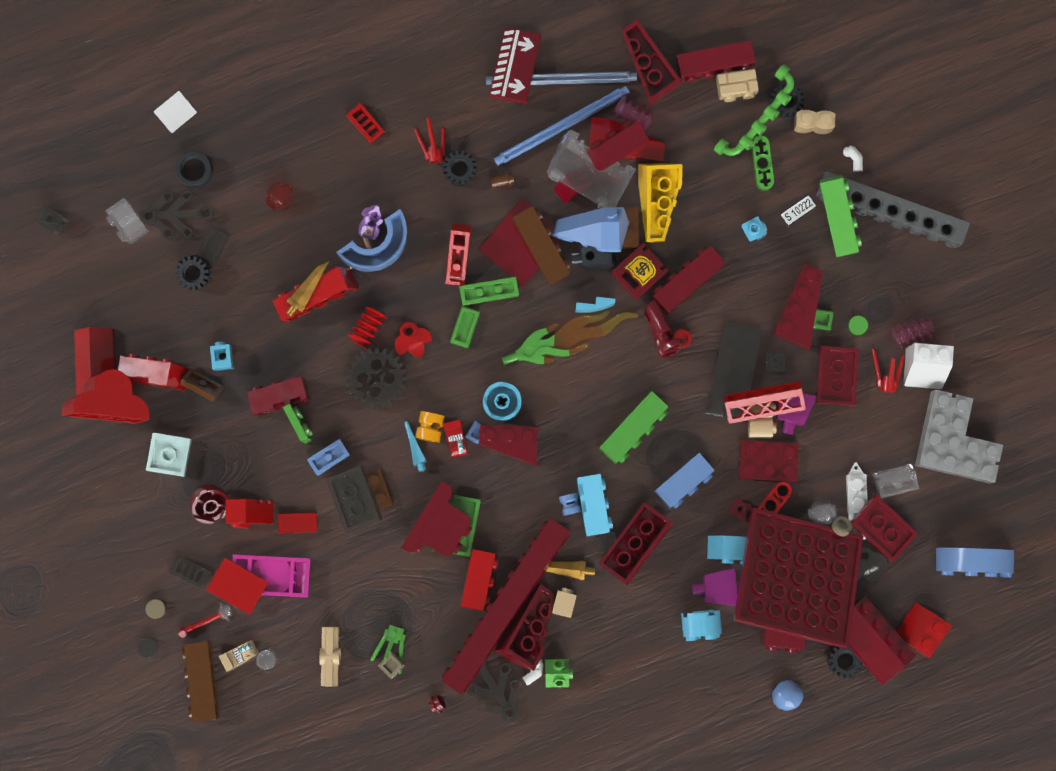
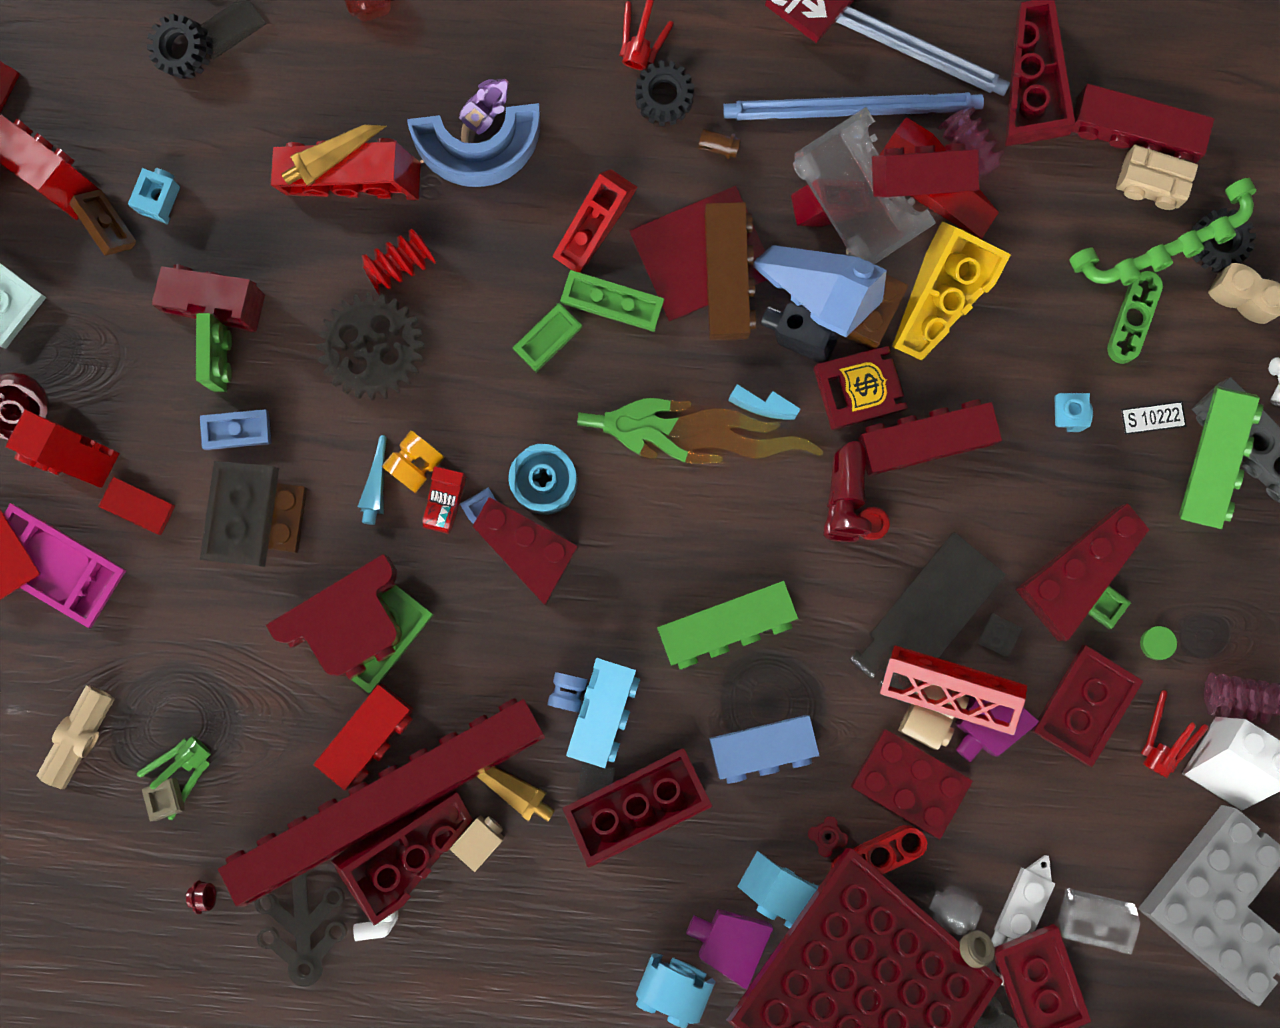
camera: 25 degrees right, 0 degrees up
(413, 343) = (456, 320): red plate -> none
(558, 672) = (410, 948): bright green brick -> none

